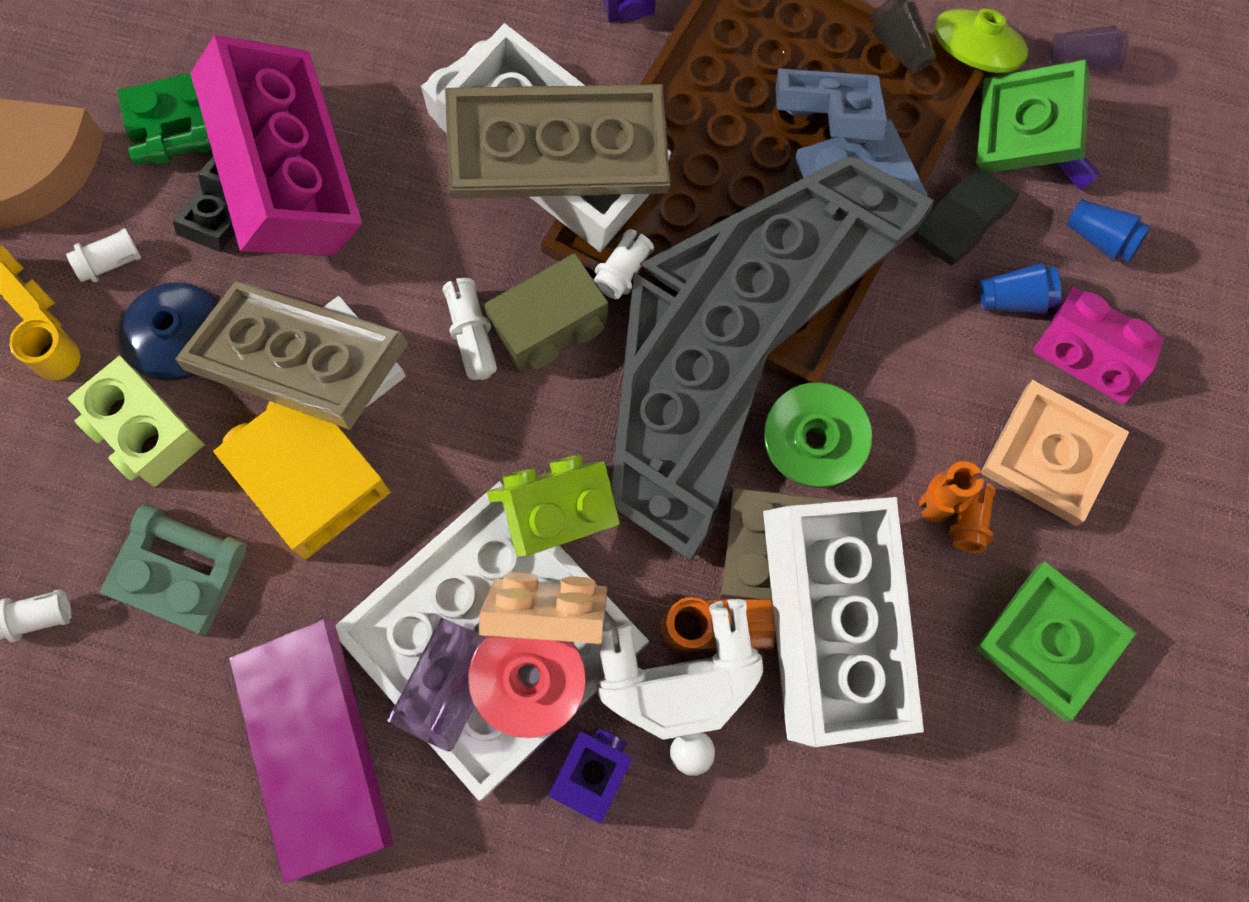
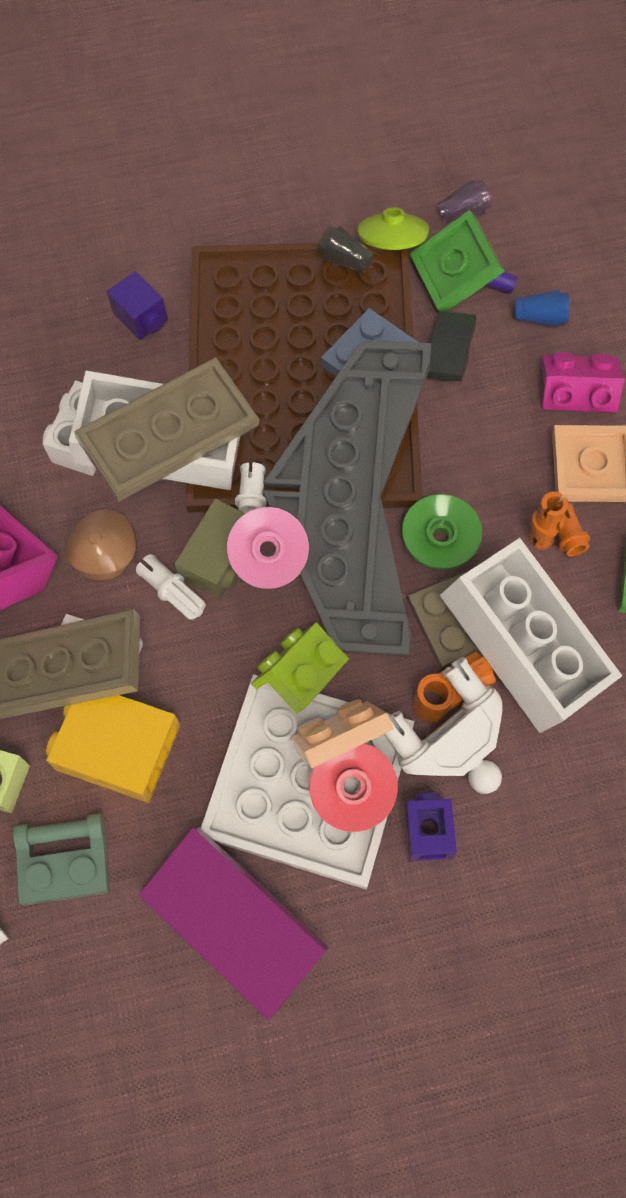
camera: 25 degrees left, 5 degrees down
(423, 238) = (101, 545): none -> medium nougat hat
(437, 693) = (297, 828): clear purple slope -> none
(575, 327) = (264, 526): none -> bright pink dish
(851, 101) = (337, 308): sand blue plate -> none
(1022, 290) = (514, 373): blue cone -> none

